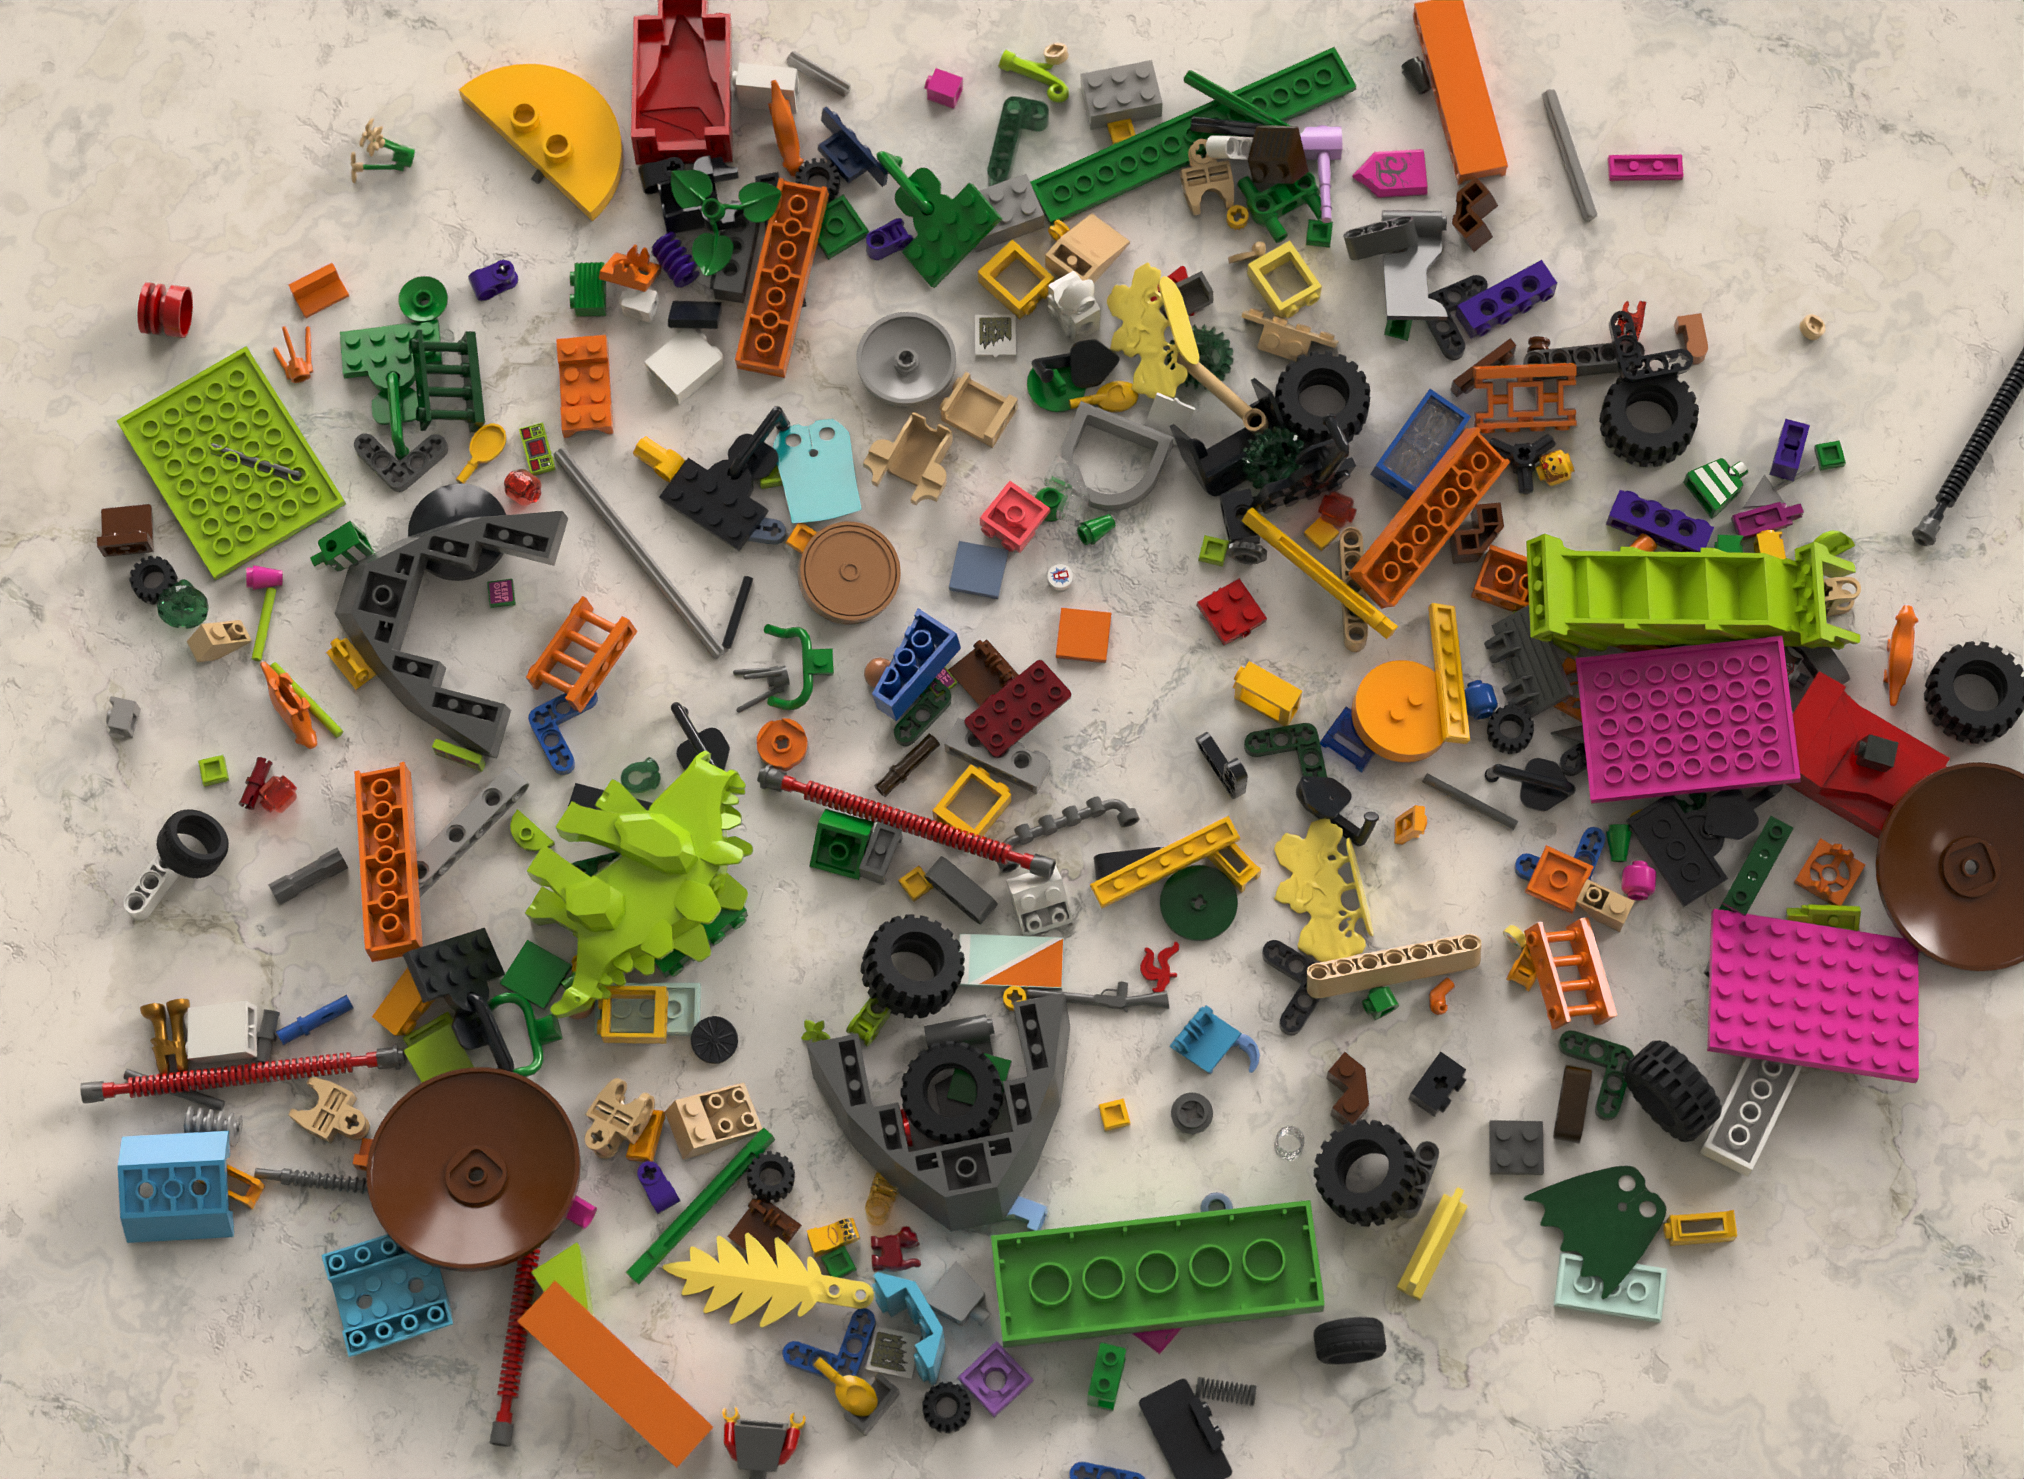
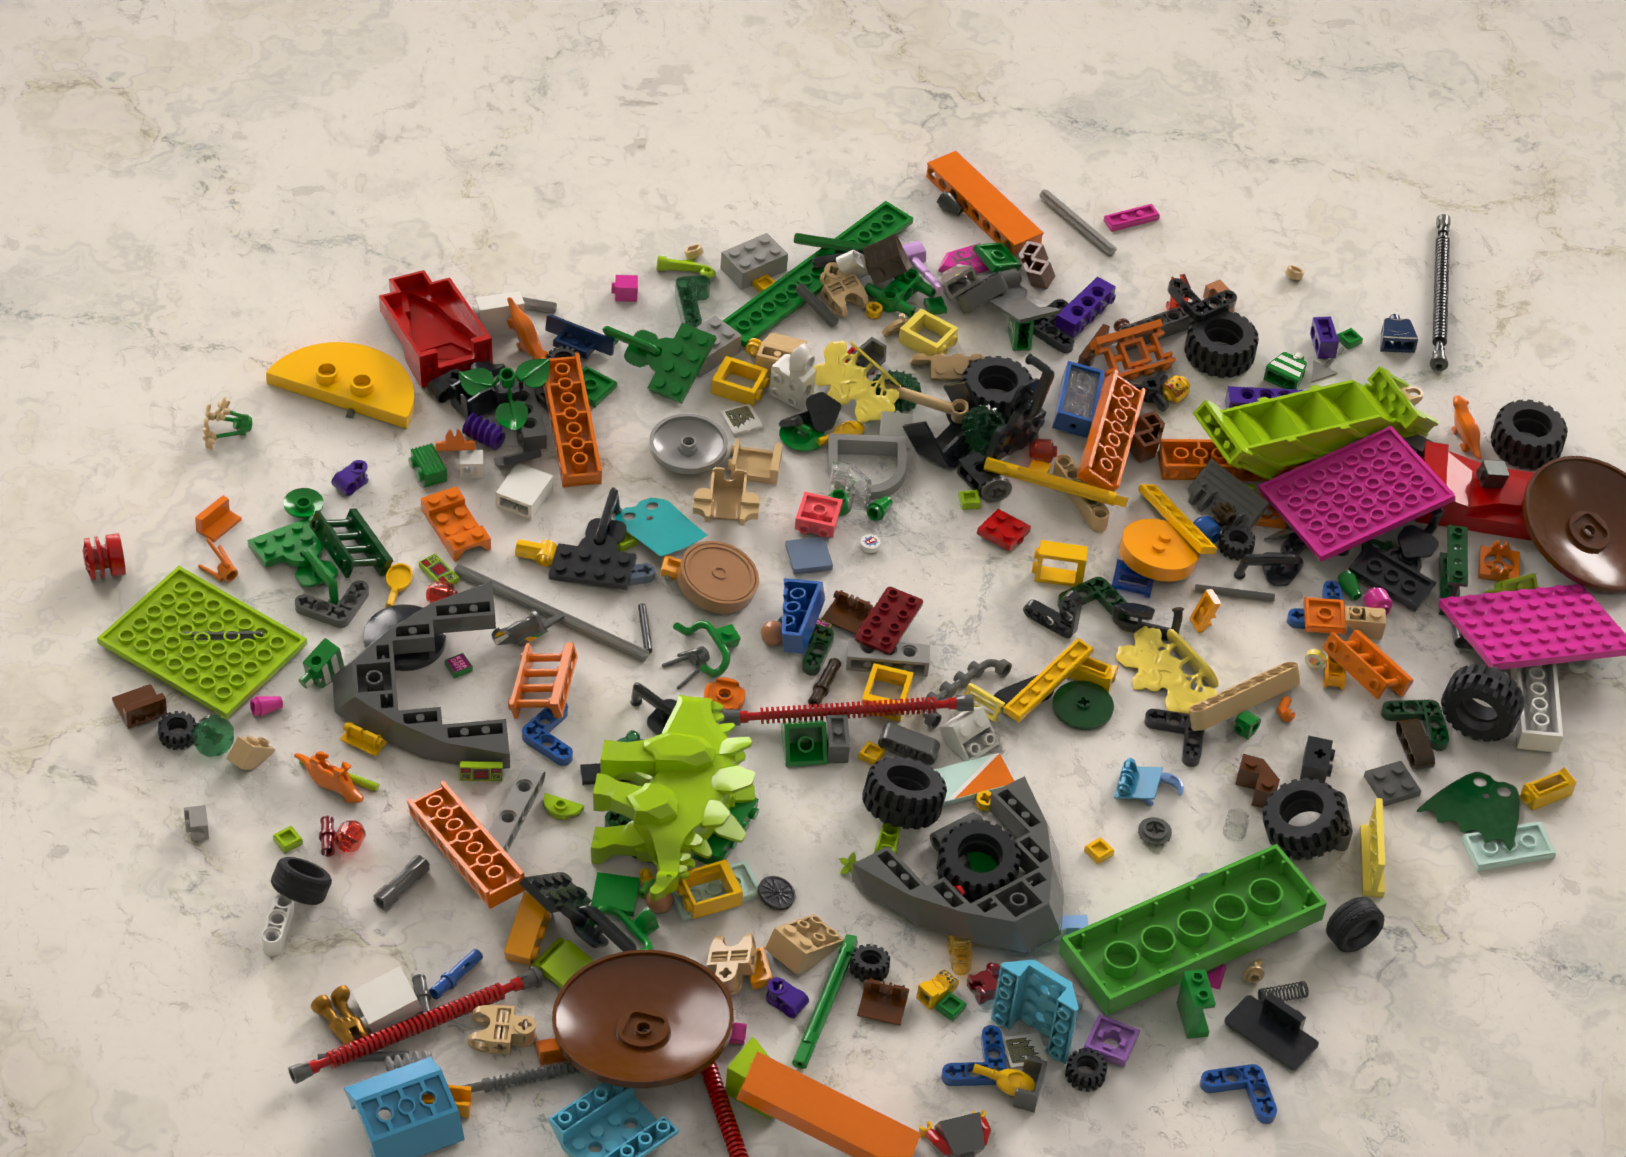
camera: 30 degrees left, 25 degrees down
(263, 624) = (280, 736): lime piece -> none
(594, 571) = (524, 630): none -> dark grey animal
(763, 1280) = (900, 1031): light yellow plant -> none
(891, 236) = (633, 383): dark purple piece -> none
(1077, 860) = (997, 710): none -> light yellow tile
(1083, 635) = (907, 572): orange tile -> none
(1121, 1001) = (1062, 780): dark grey piece -> none
(1153, 973) = (1081, 755): red piece -> none
(1165, 190) = (817, 305): none -> dark grey axle
(1204, 1352) = (1254, 972): none -> tan plate
(1355, 210) = (956, 282): none -> light grey torso
(1432, 182) = (997, 257): none -> green tile
(1507, 689) = (1224, 514): none -> dark brown gear
(1768, 517) = (1334, 376): magenta hinge -> none
(1893, 473) = (1398, 335): none -> dark blue torso

